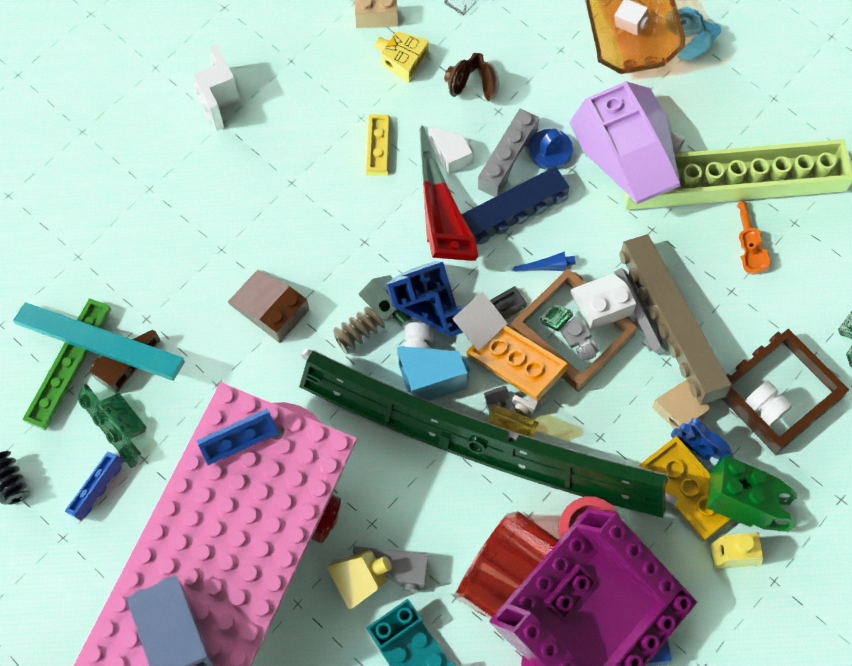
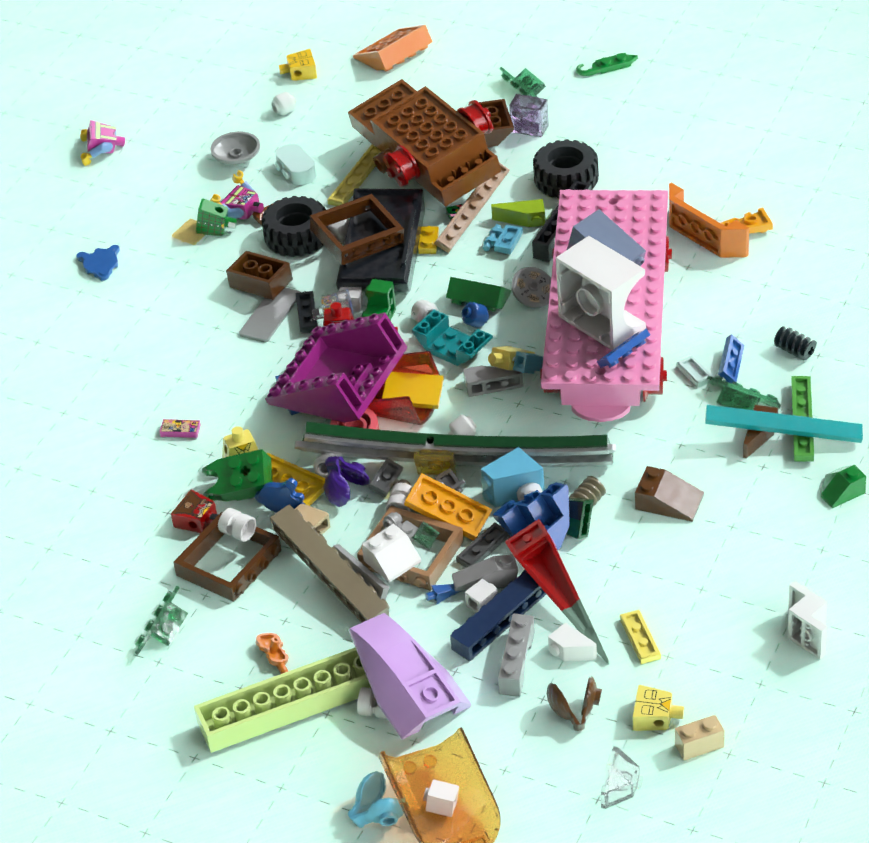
camera: 165 degrees right, 25 degrees down
(82, 254) = (843, 485): none -> green slope
(143, 491) = (694, 371): none -> light aqua tile
(229, 496) = (594, 290): none -> white piece
(342, 547) = (527, 362): none -> medium azure brick
(457, 489) = (462, 426): none -> white head
(480, 320) = (487, 519): white sticker -> none
(490, 575) = (421, 388): none -> yellow tile
(506, 259) = (496, 570): none -> light grey slope
(518, 236) = (479, 595): none -> white brick
(550, 149) = (479, 676): blue tile -> none
(566, 395) = (398, 496): none -> white wheel
(576, 438) = (387, 478): none -> dark grey plate
(625, 452) = (336, 486): none -> dark purple animal
(808, 471) = (194, 512): none -> torso
(808, 639) = (180, 428): none -> tile

